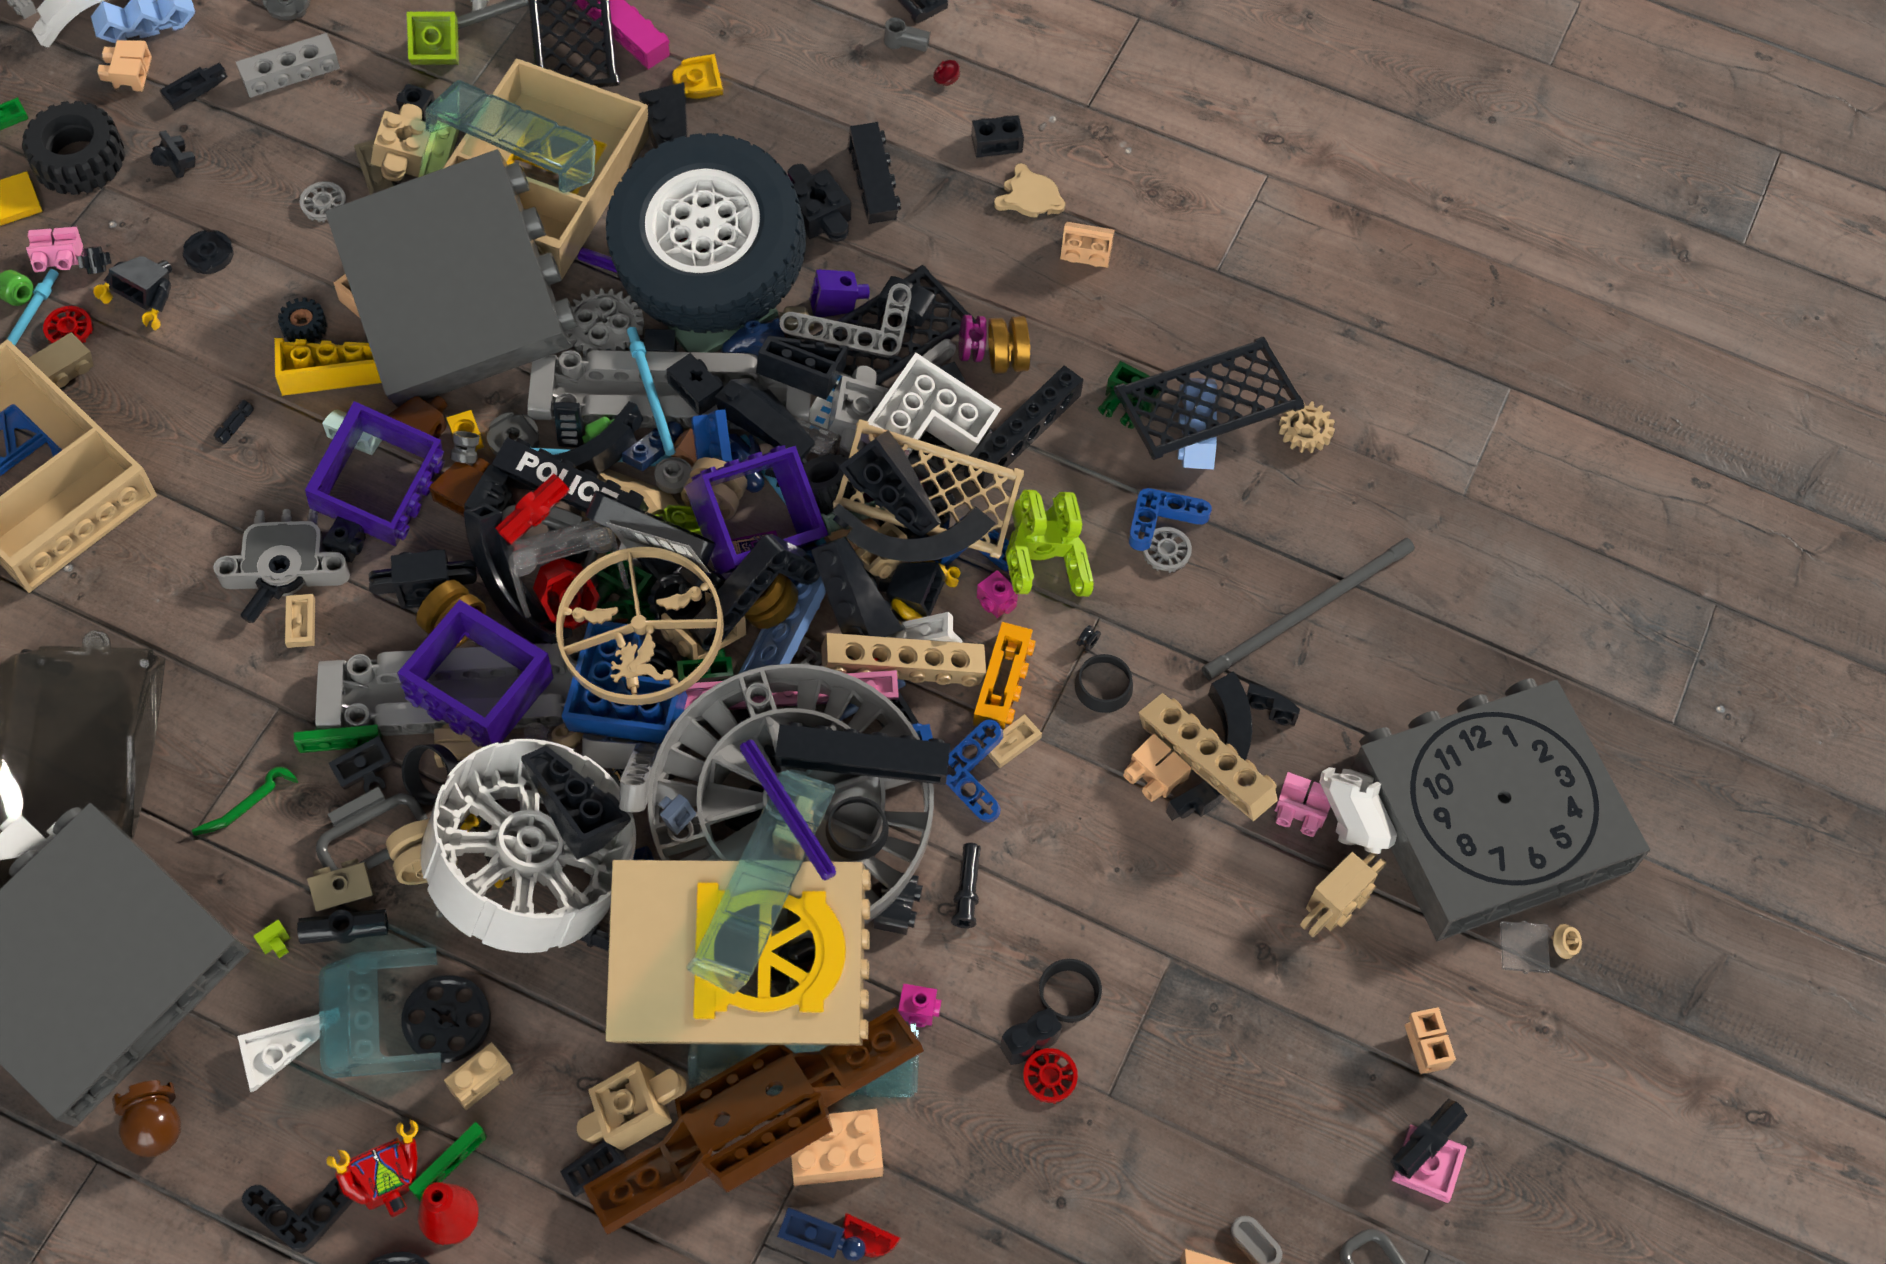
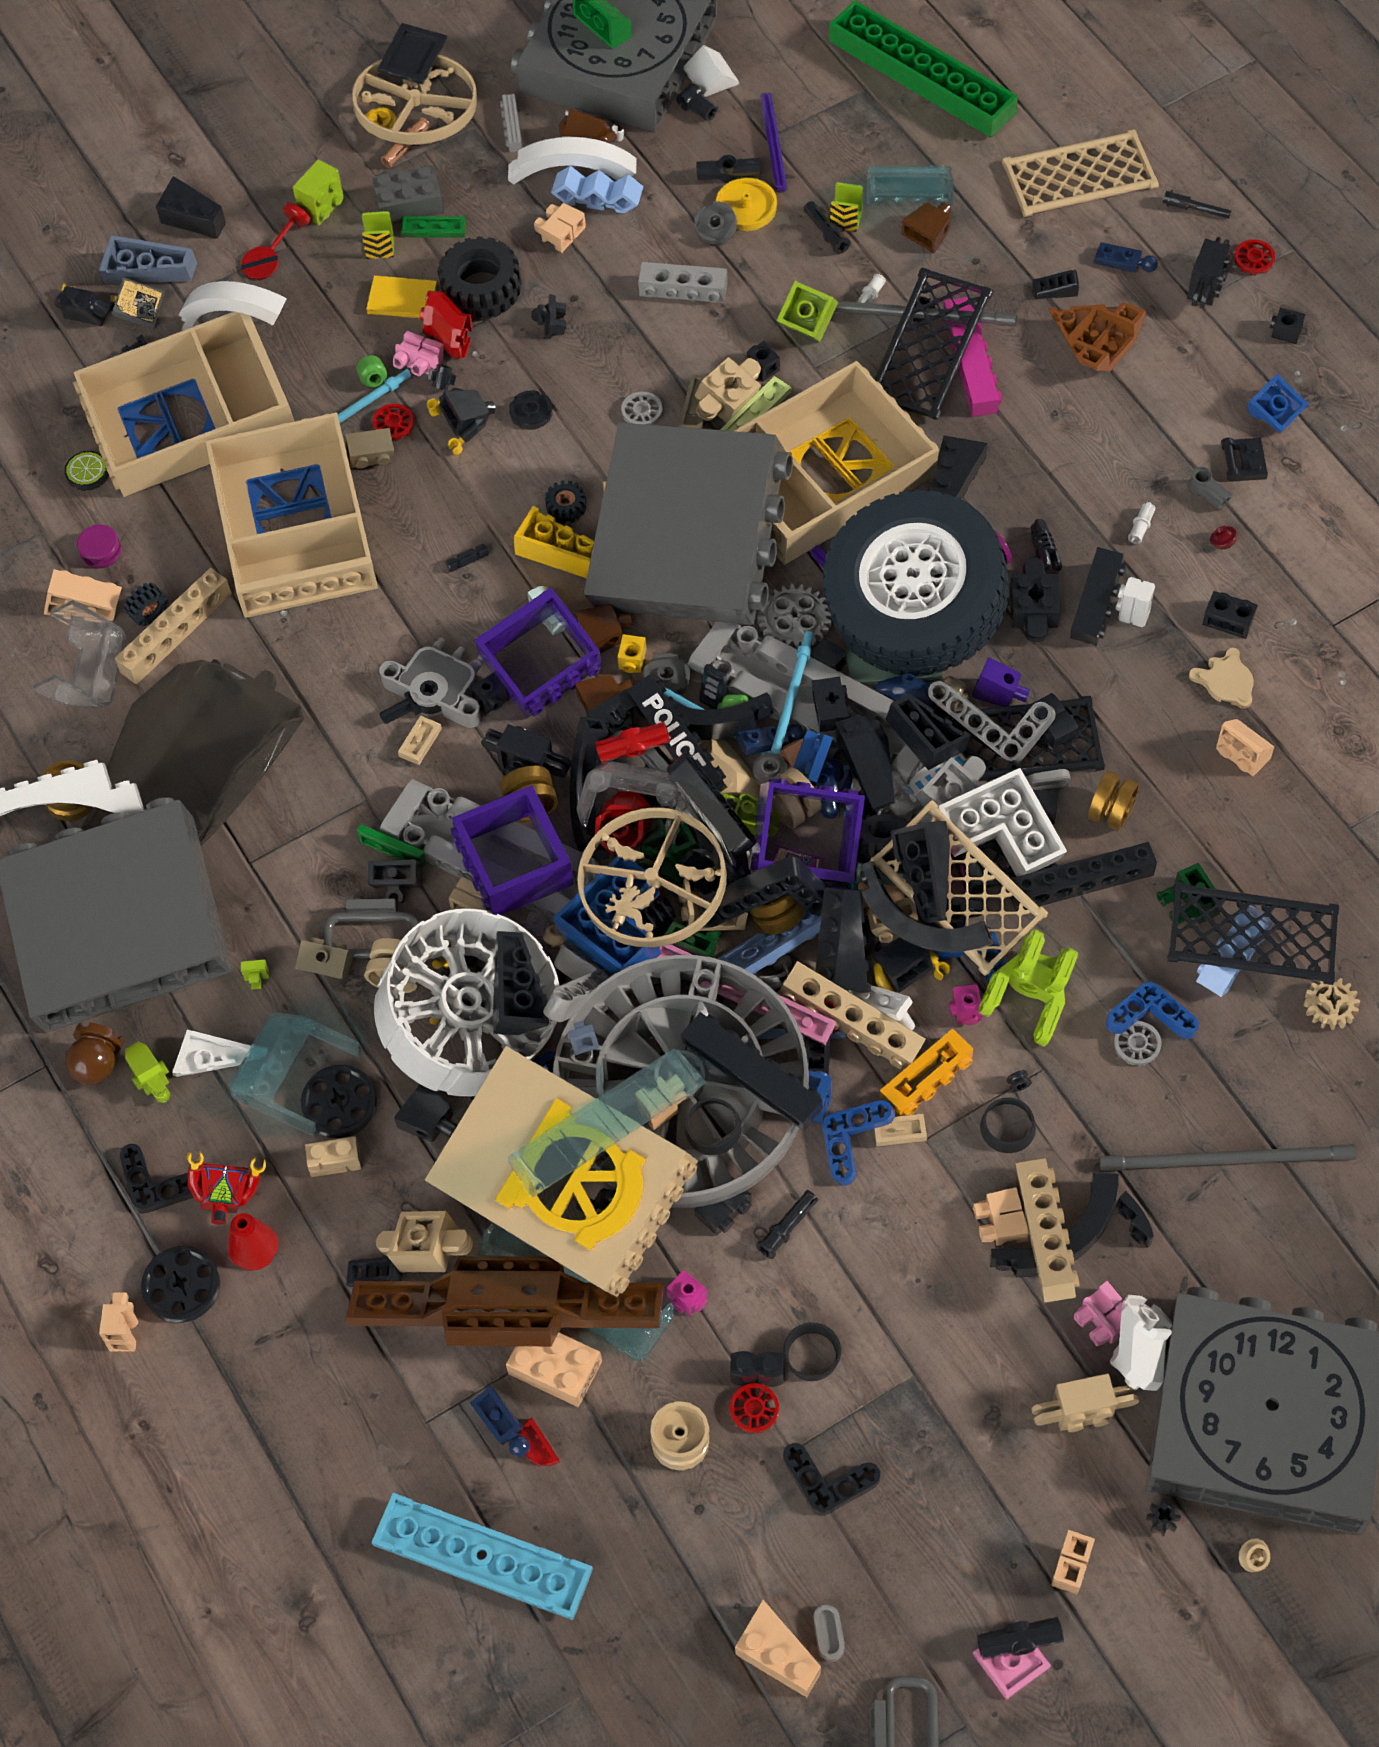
camera: 40 degrees right, 0 degrees up
(66, 205) = (446, 324): none -> red brick
(193, 85) = (601, 266): black hinge -> none
(220, 1102) = (148, 1071): none -> lime hinge
(247, 803) = (300, 860): green piece -> none
(324, 928) = (320, 996): black piece -> none
(411, 775) = (428, 897): black tyre -> none
(449, 1160) = (278, 1205): green tile -> none
(464, 447) = (620, 666): dark grey wheel -> none
(516, 132) = (813, 425): clear light blue piece -> none
(548, 981) = (425, 1115): none -> black torso
(699, 76) = (1008, 443): yellow tile -> none
(788, 810) = (655, 1075): dark purple axle -> none
(792, 150) = (1045, 545): none -> black hinge
(866, 93) = (1141, 523): none -> white axle
(910, 161) = (1135, 601): none -> white brick
(972, 337) = (1087, 779): magenta head -> none
(1000, 1160) = (674, 1450): none -> tan wheel
(1168, 1111) = (830, 1489): none -> black beam
(1464, 954) = (1165, 1524): none -> black gear
(1525, 947) = (1217, 1539): clear piece -> none

